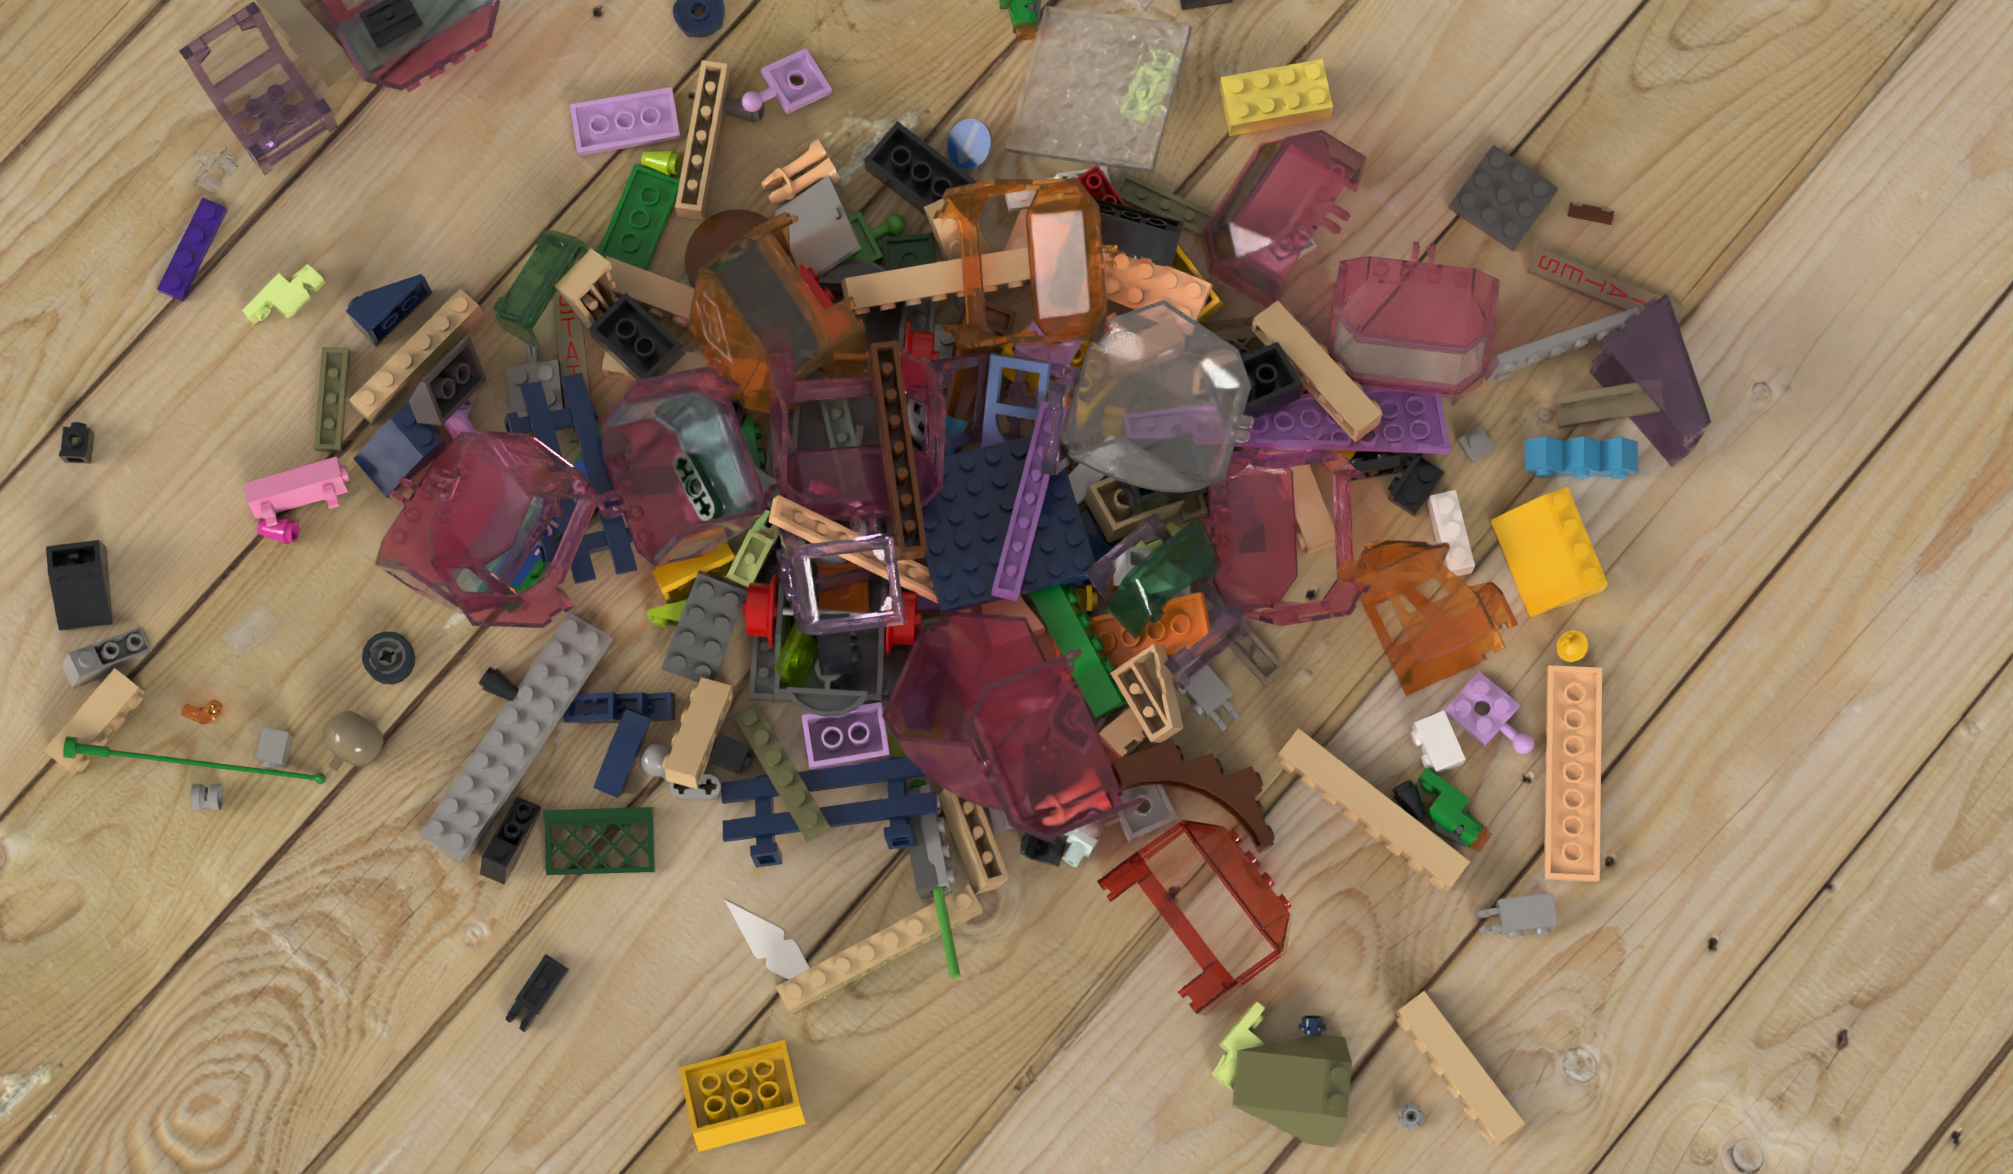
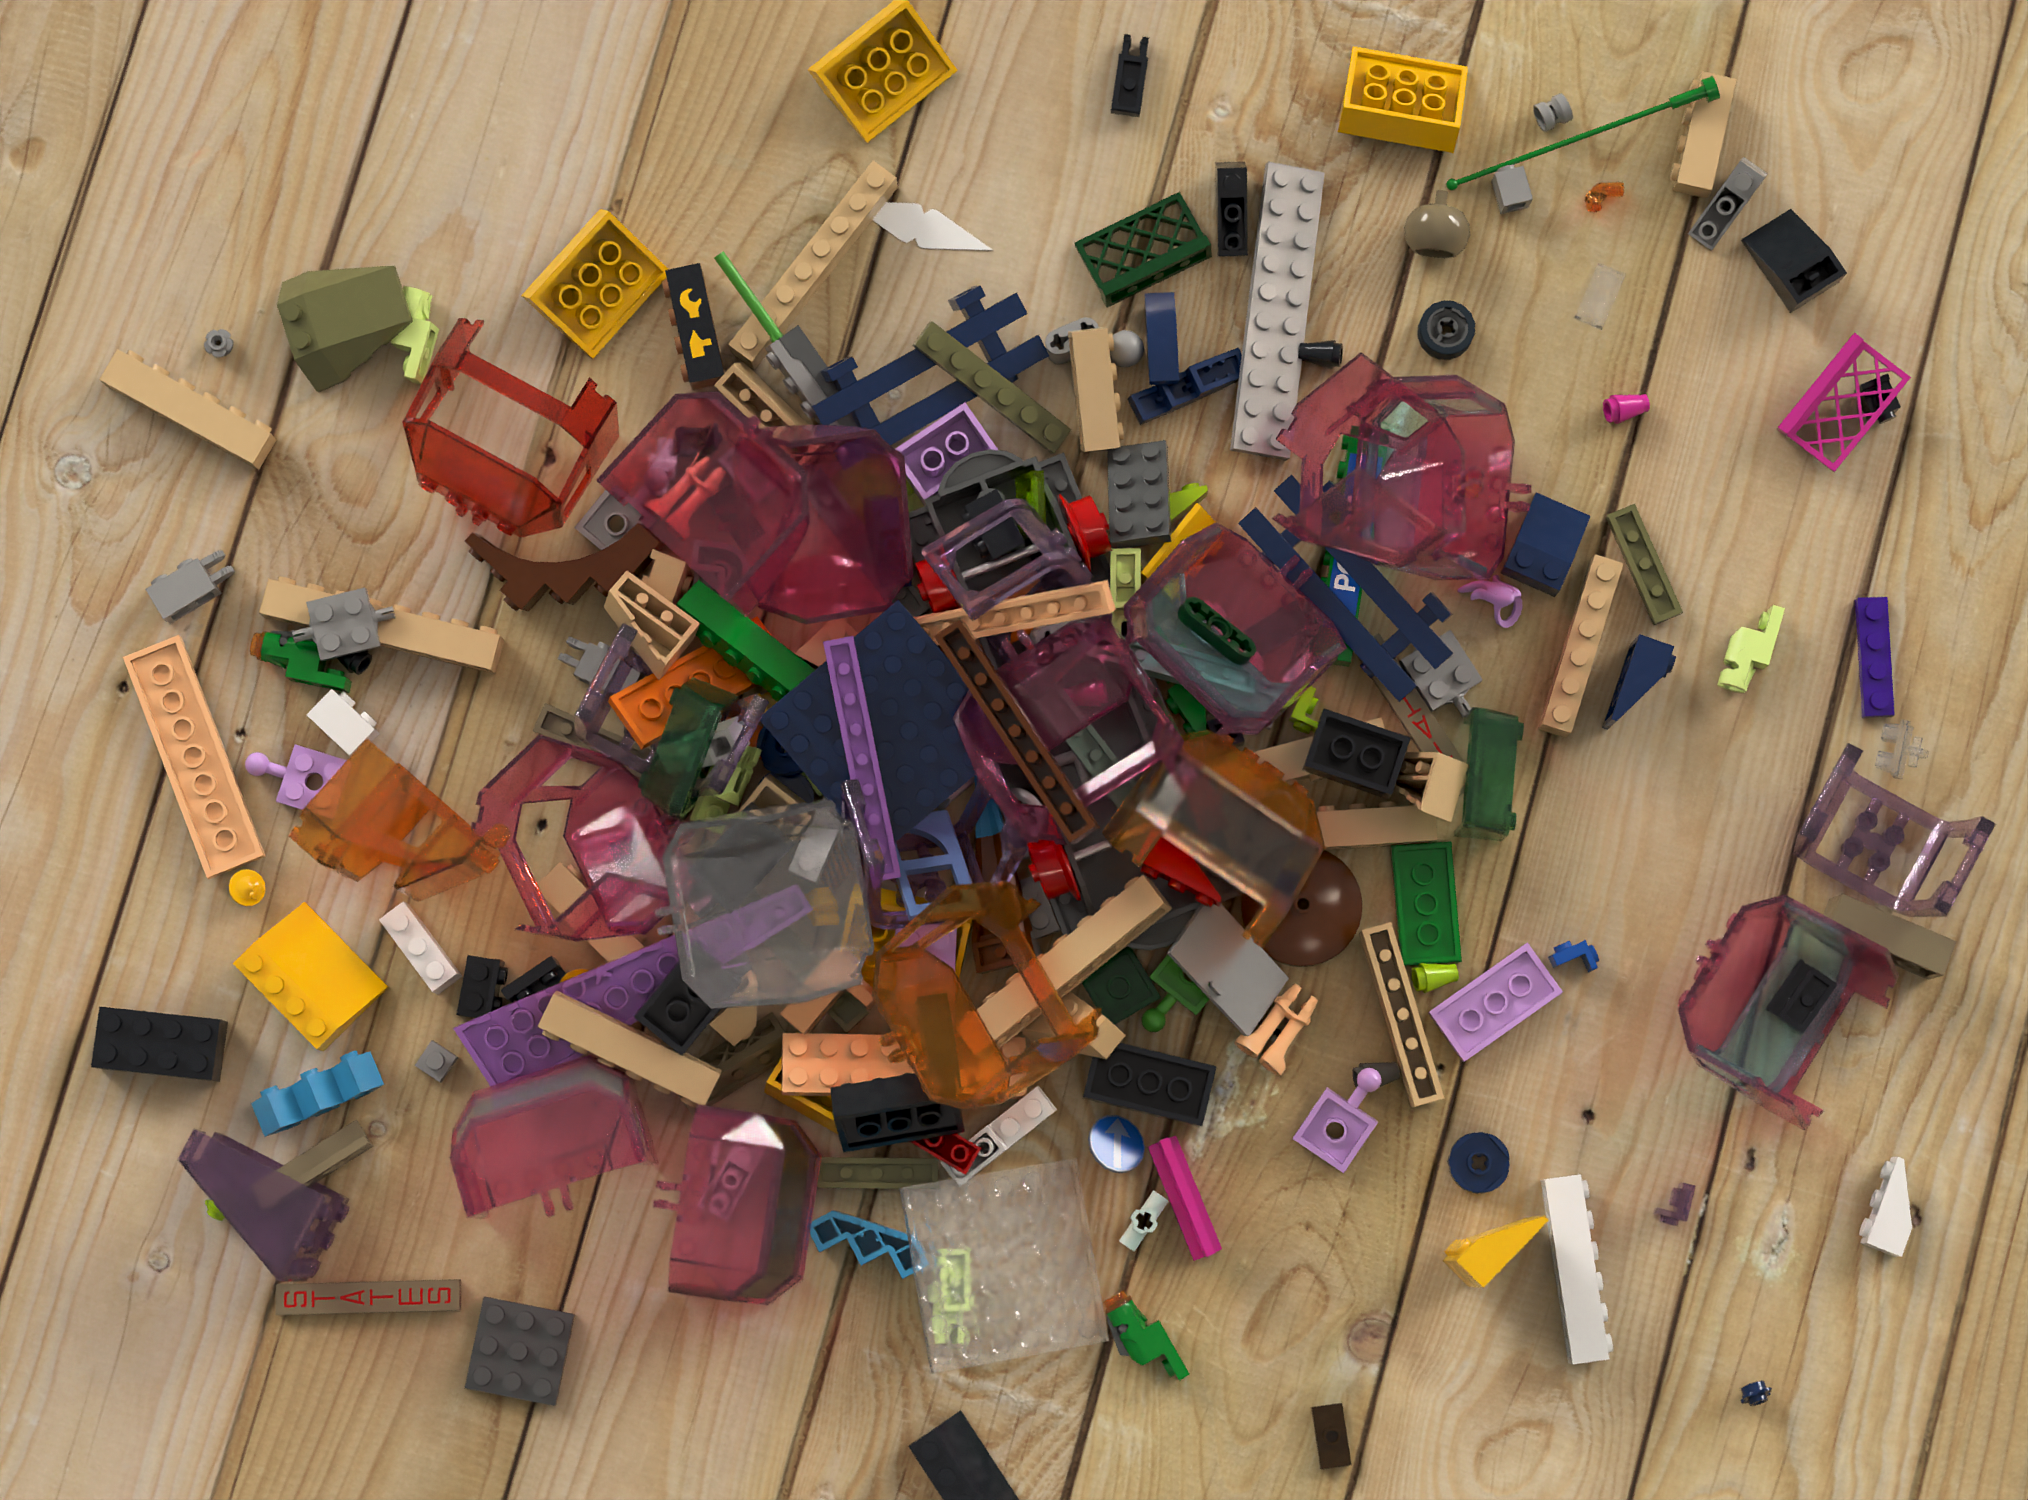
camera: 155 degrees right, 5 degrees up
(118, 469) = (1824, 384): none -> dark pink fence
(297, 488) = (1629, 454): bright pink brick -> none
(322, 866) = (1403, 99): none -> yellow slope
(448, 385) = (1526, 619): dark grey slope -> none
(548, 131) = (1566, 952): none -> blue bracket
(731, 755) = (1052, 388): black brick -> none
(936, 82) = (1184, 1198): none -> dark pink fence
(966, 86) = (1152, 1206): none -> light aqua axle
(1001, 943) = (695, 326): none -> black brick
(1069, 1020) = (596, 283): none -> yellow slope
(1193, 157) = (865, 1238): none -> dark azure brick
(1276, 97) = (811, 1349): light yellow brick -> none
(1312, 1025) = (352, 386): dark blue plate -> none
(1403, 817) = (343, 624): none -> light grey plate
(1554, 345) = (435, 1158): light grey wing -> none
(1590, 213) = (418, 1377): reddish brown piece -> none
(1693, 552) = (159, 1044): none -> black brick

